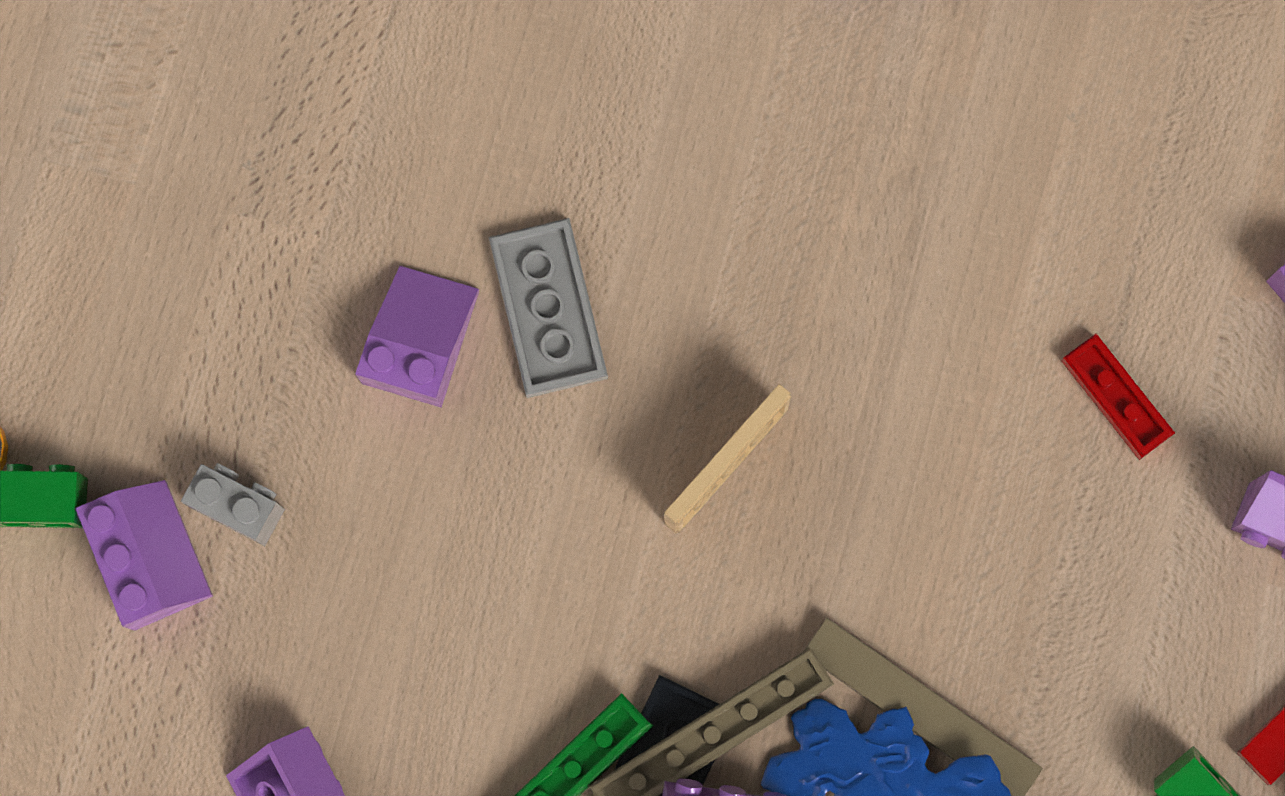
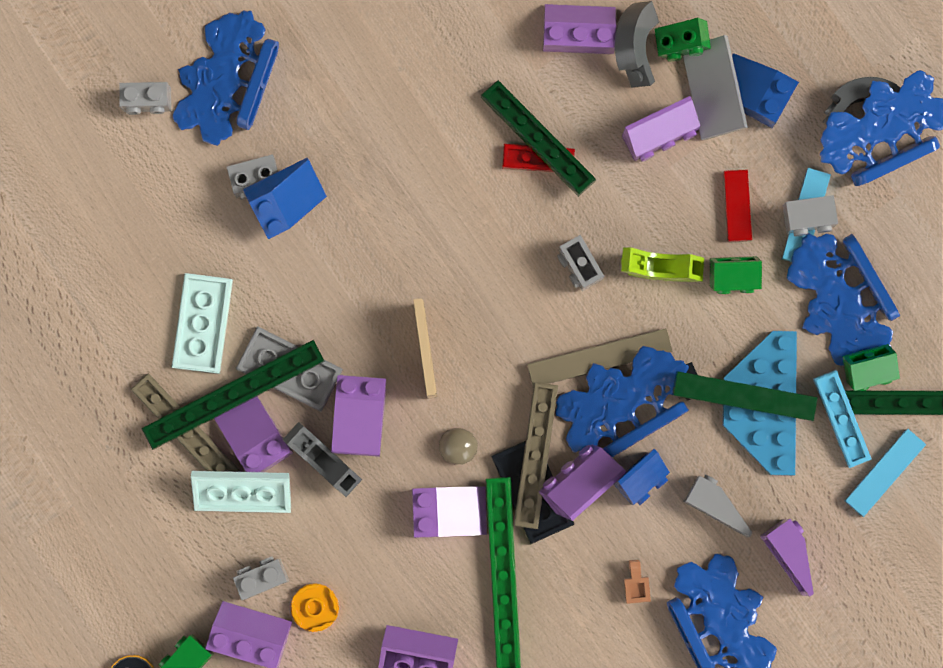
camera: 55 degrees left, 5 degrees up
(255, 610) = (314, 607): none -> light orange tile
(329, 379) = (241, 491): none -> light aqua tile
(352, 251) = (196, 440): none -> dark tan tile
(451, 262) = (233, 395): none -> dark green tile
(462, 448) = (322, 459): none -> dark grey arch
(512, 146) = (202, 323): none -> light aqua tile
(534, 681) = (449, 511): none -> slope
(561, 448) = (358, 415): none -> medium lavender slope
(634, 618) = (458, 446): none -> dark tan hair
(762, 49) = (250, 172): none -> light grey brick
(769, 107) = (285, 197): none -> blue slope
(1027, 573) = (580, 263): none -> light grey brick
(1122, 689) = (662, 266): none -> lime arch
(1145, 373) = (538, 138): none -> dark green tile

